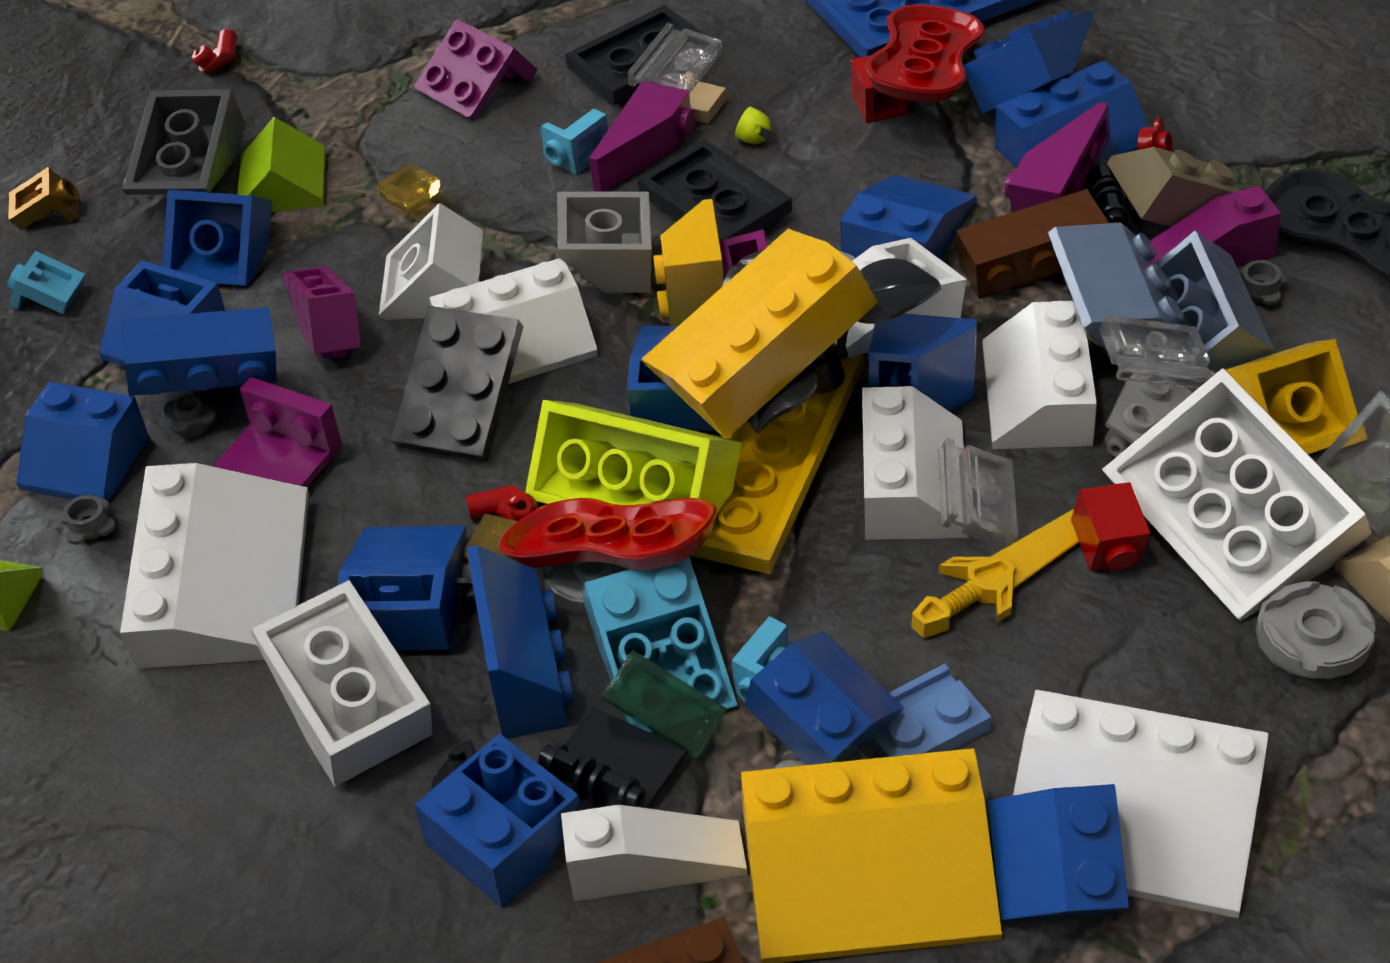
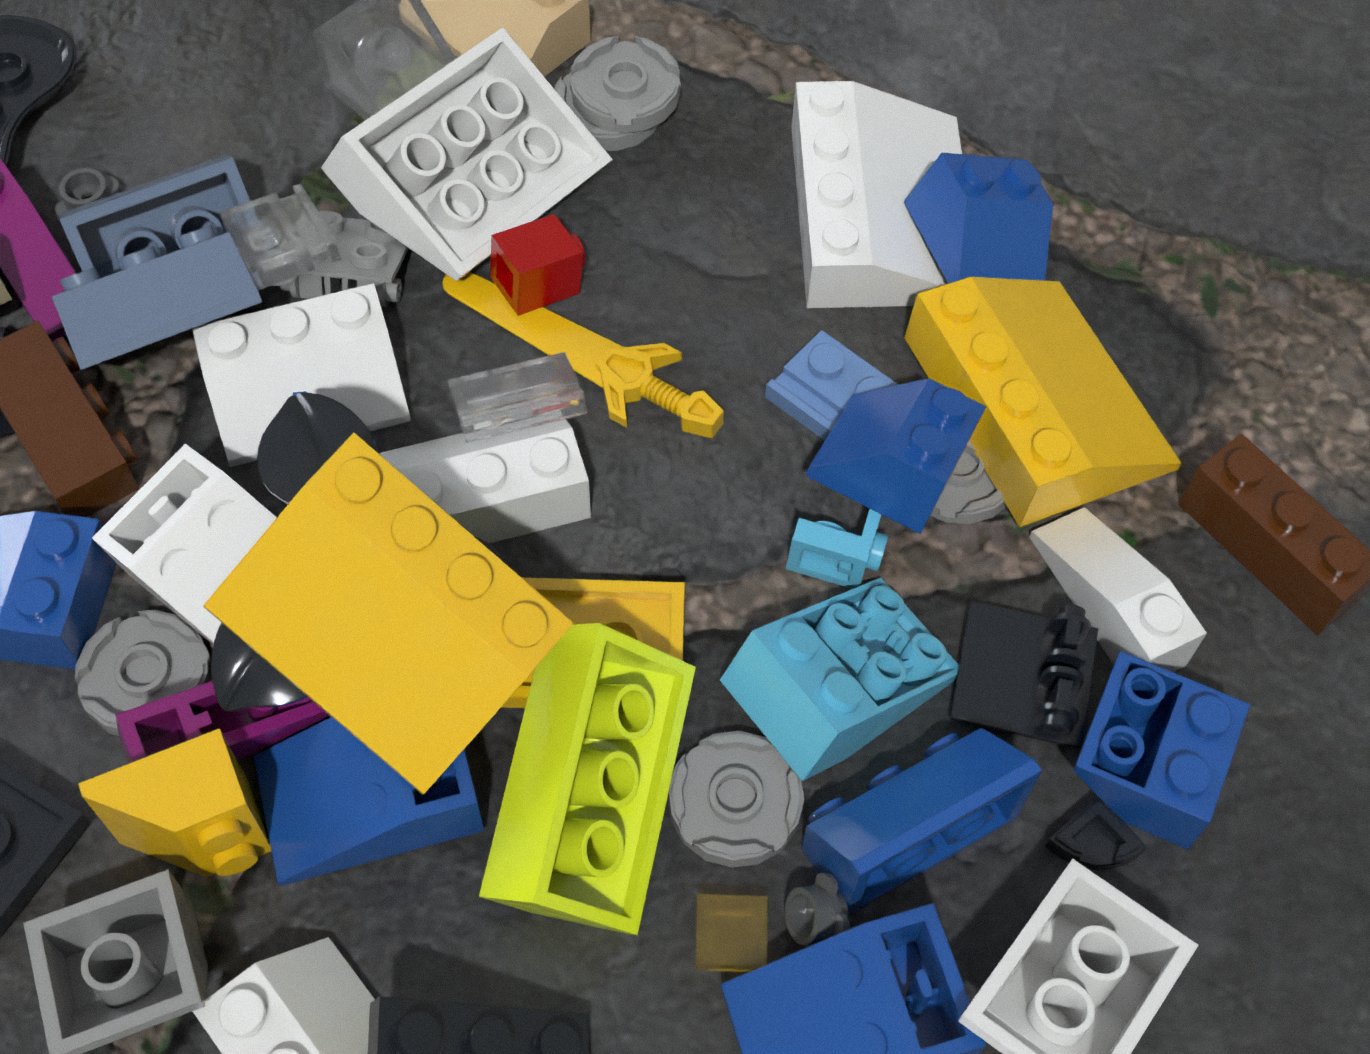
camera: 115 degrees left, 15 degrees up
(504, 502) = (660, 947): red arm -> none
(617, 534) = (726, 807): red plate -> none
(664, 703) = (934, 630): clear green tile -> none
(1302, 392) = (280, 134): yellow slope -> none

